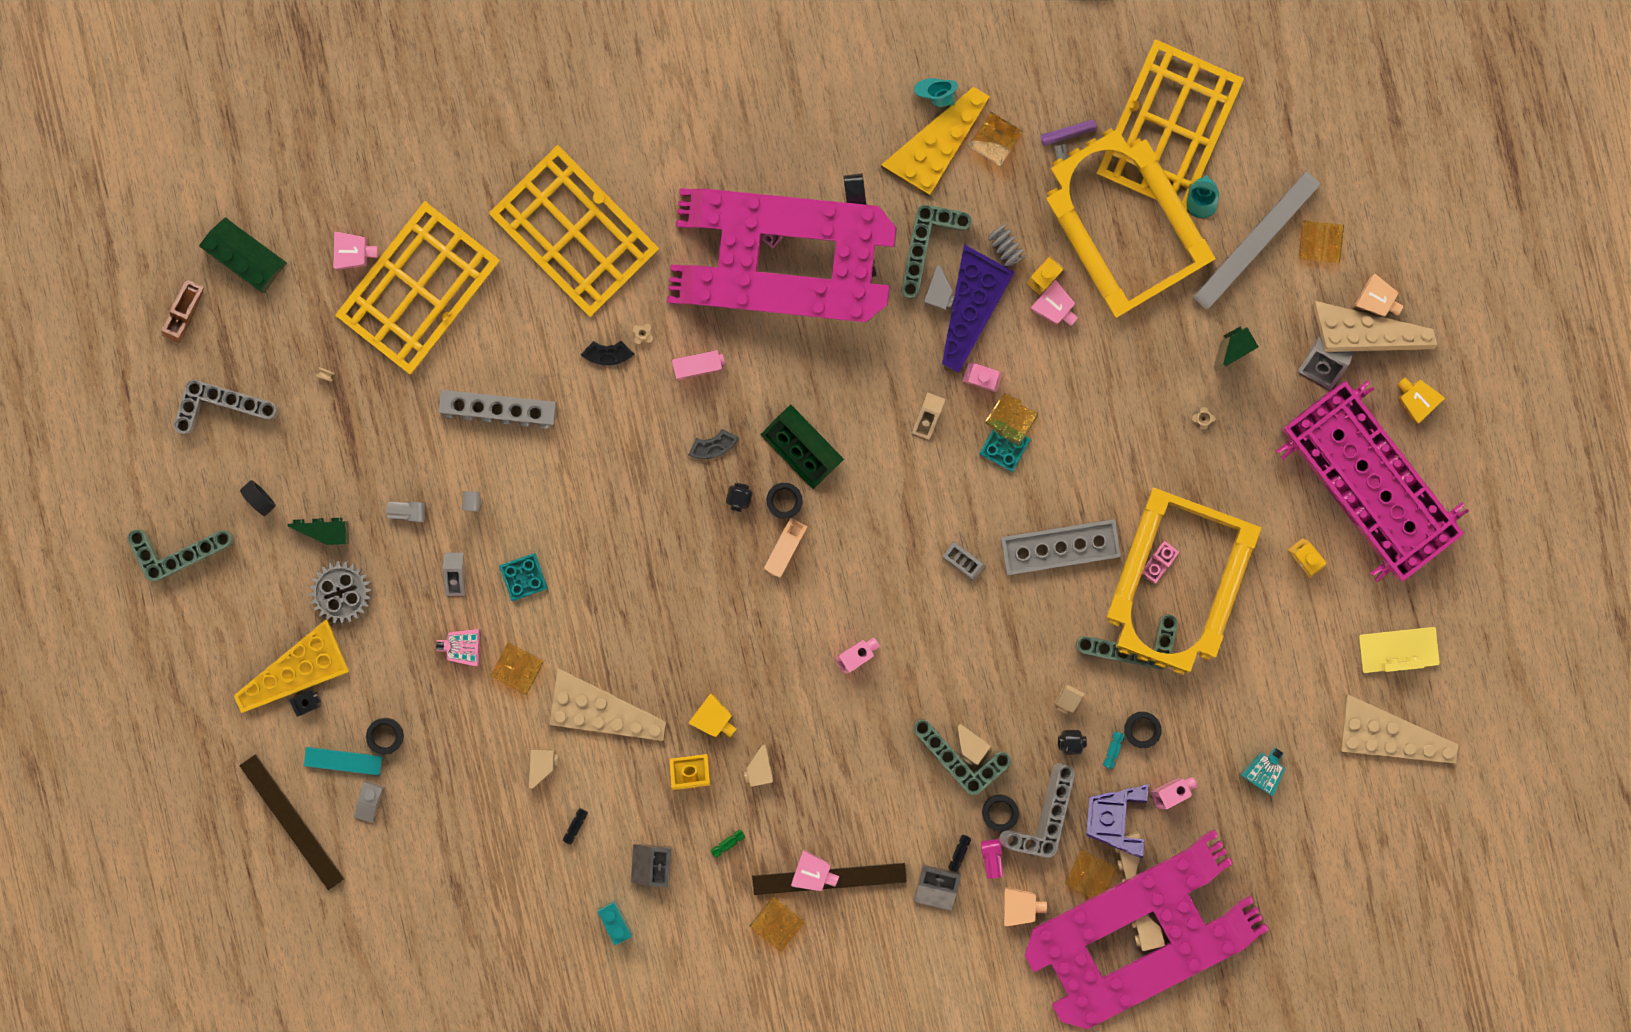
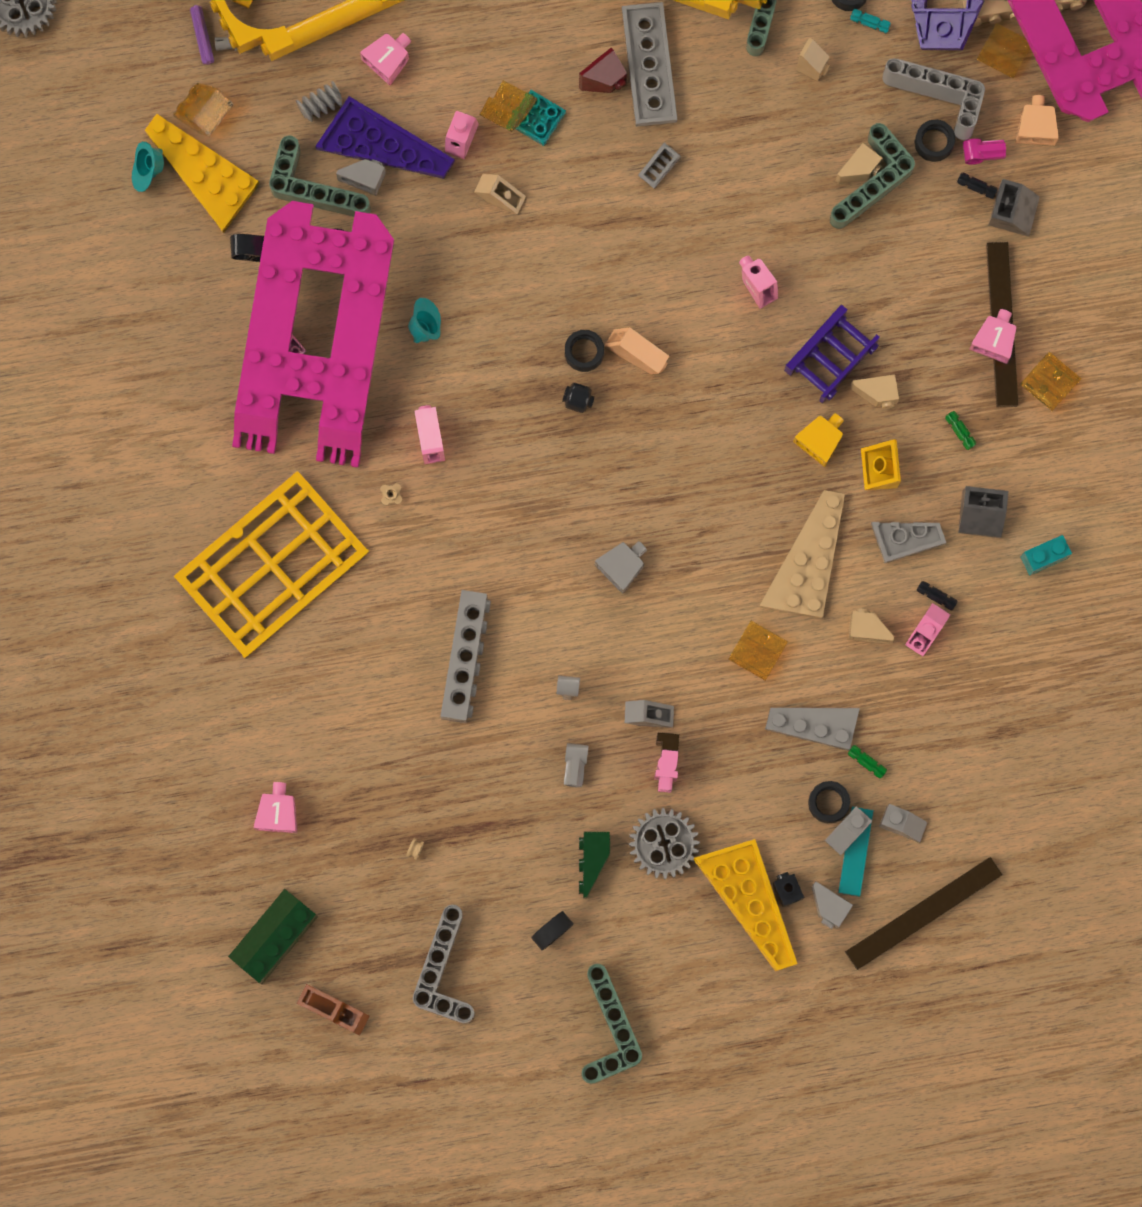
camera: 85 degrees left, 10 degrees down
(292, 740) = (829, 906): none -> light grey slope
(358, 754) = (848, 830): none -> light grey slope
(408, 591) = (668, 762): none -> bright pink hips
(417, 287) = (323, 740): yellow door -> none
(422, 769) = (867, 761): none -> green axle
(453, 725) = (819, 725): none -> light grey wing
(462, 646) = (731, 709): torso -> none
(523, 577) = (655, 639): teal tile -> none
(543, 819) = (927, 629): none -> bright pink slope
(588, 544) = (622, 564): none -> light grey torso
(607, 355) = (412, 534): black tile -> none
(624, 797) = (905, 539): none -> light grey wing
(713, 447) = (521, 425): dark grey tile -> none
(802, 446) = (526, 328): dark green slope -> none
(803, 355) = (425, 321): none -> teal piece
(809, 718) = (824, 334): none -> dark purple fence
(1044, 275) = (352, 62): yellow torso -> none
(1045, 506) = (603, 74): none -> dark red slope
(1071, 742) = (860, 61): black head -> none

